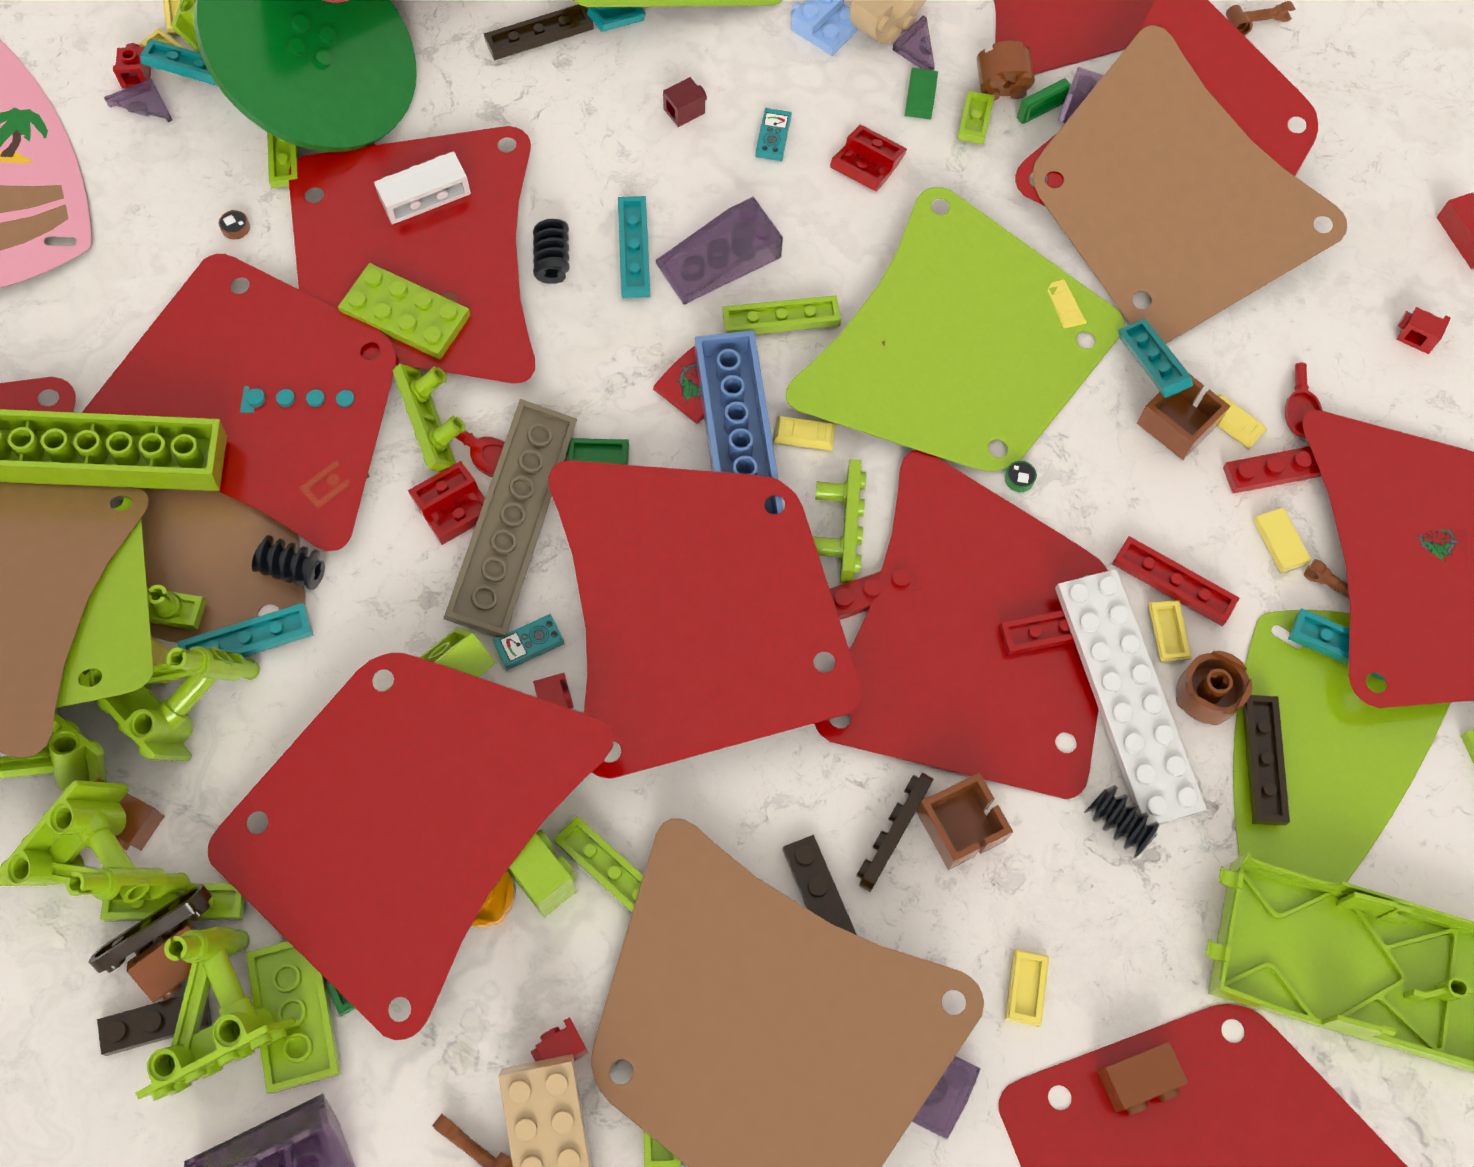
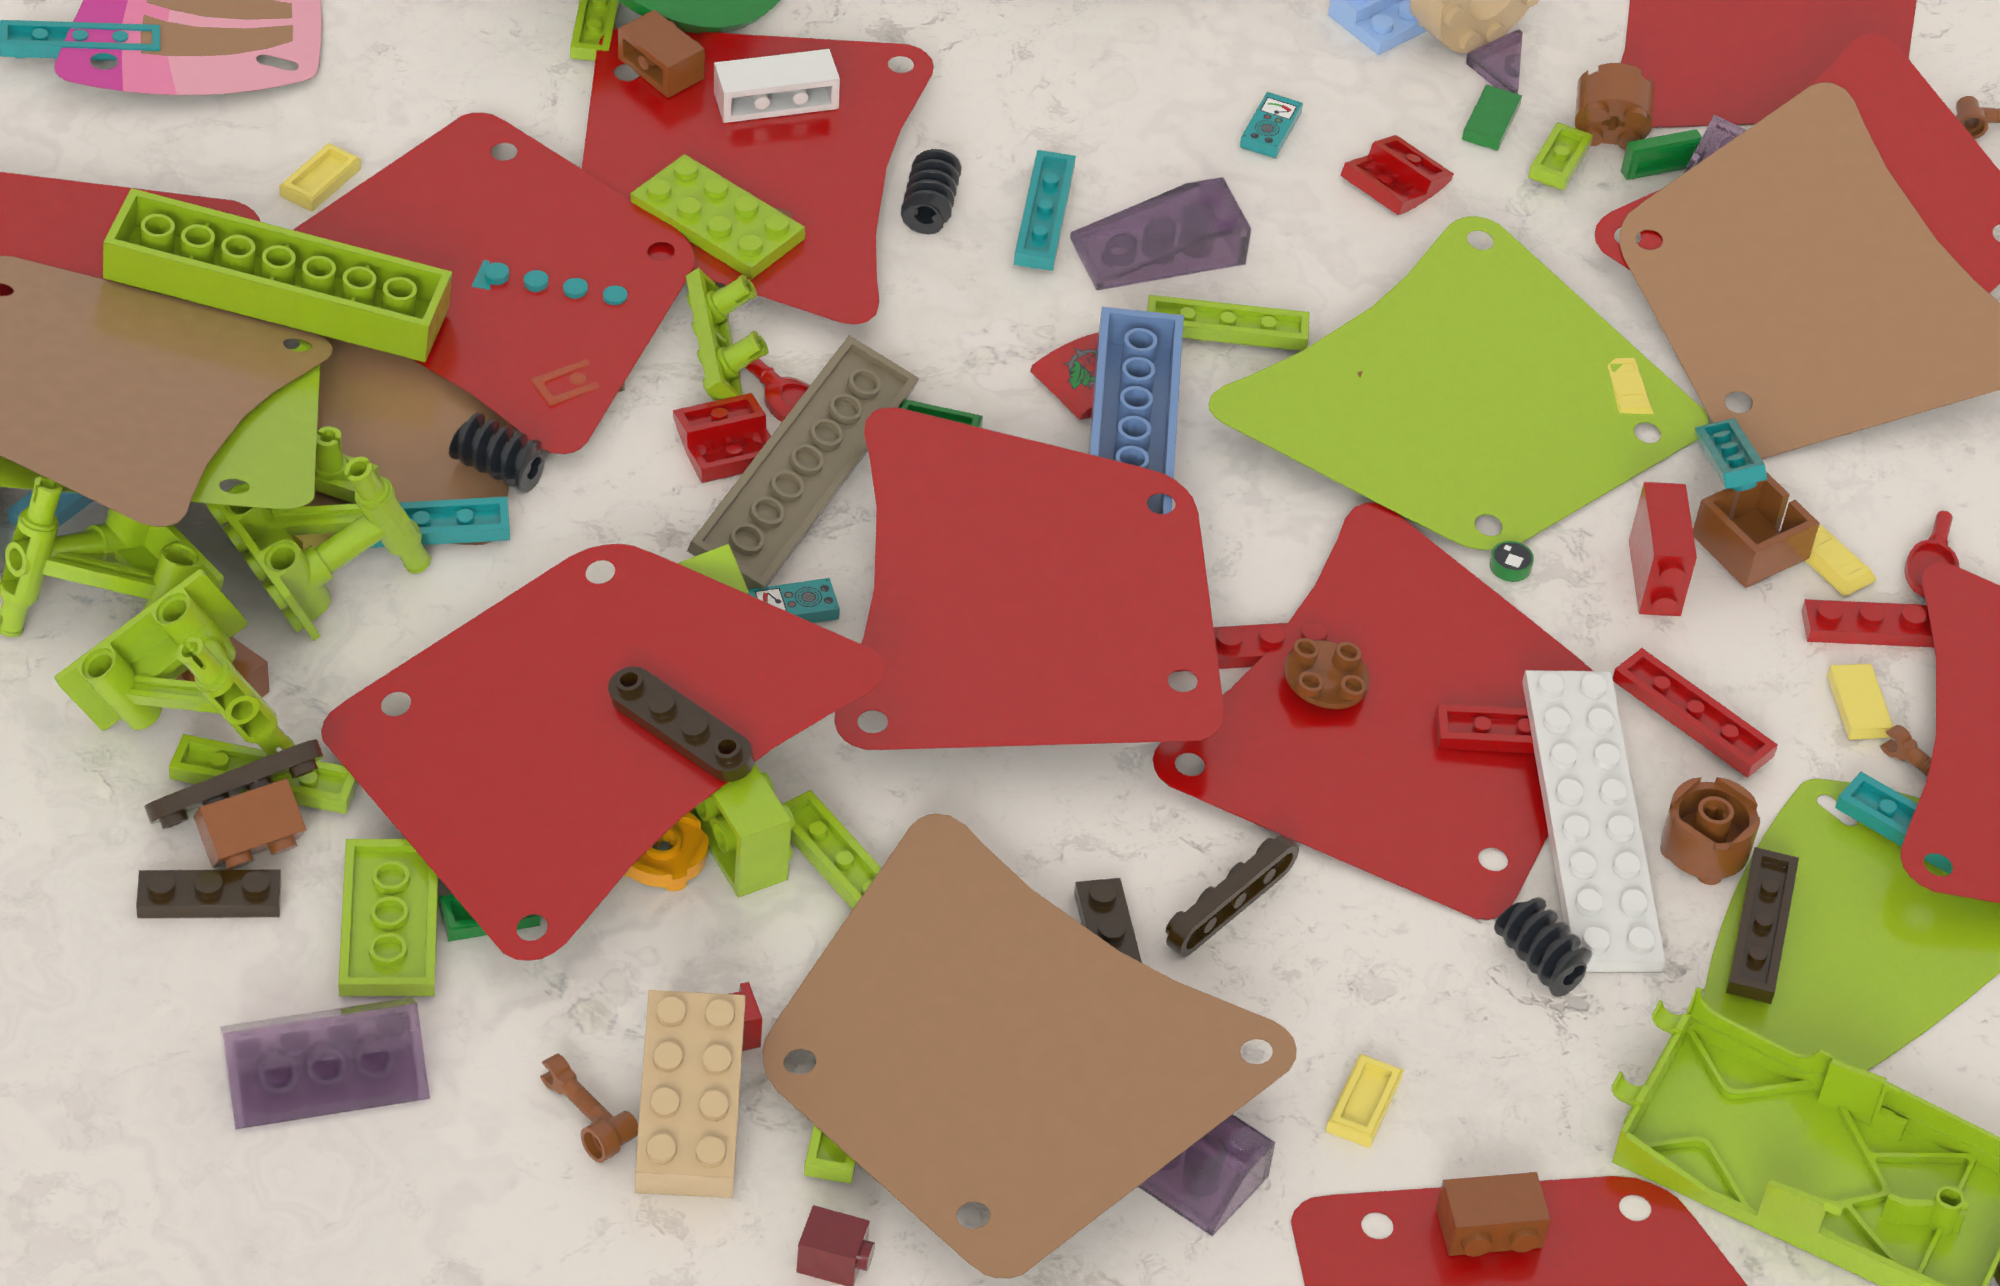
camera: 10 degrees right, 20 degrees down
(111, 336) = (320, 177): none -> light yellow tile
(231, 1036) = (268, 917): lime plate -> none
(234, 224) = (511, 87): tile -> none
(334, 177) = (661, 53): none -> dark orange brick
(471, 813) = (681, 724): none -> dark brown plate
(684, 101) = (1156, 63): dark red brick -> none
(804, 433) = (1225, 457): light yellow tile -> none
(848, 494) = (1270, 544): lime plate -> none
(919, 616) = (1327, 673): none -> dark orange dish
(958, 821) = (1326, 896): dark orange piece -> none
(1126, 450) = (1662, 549): none -> red brick
(1169, 630) = (1669, 763): light yellow tile -> none

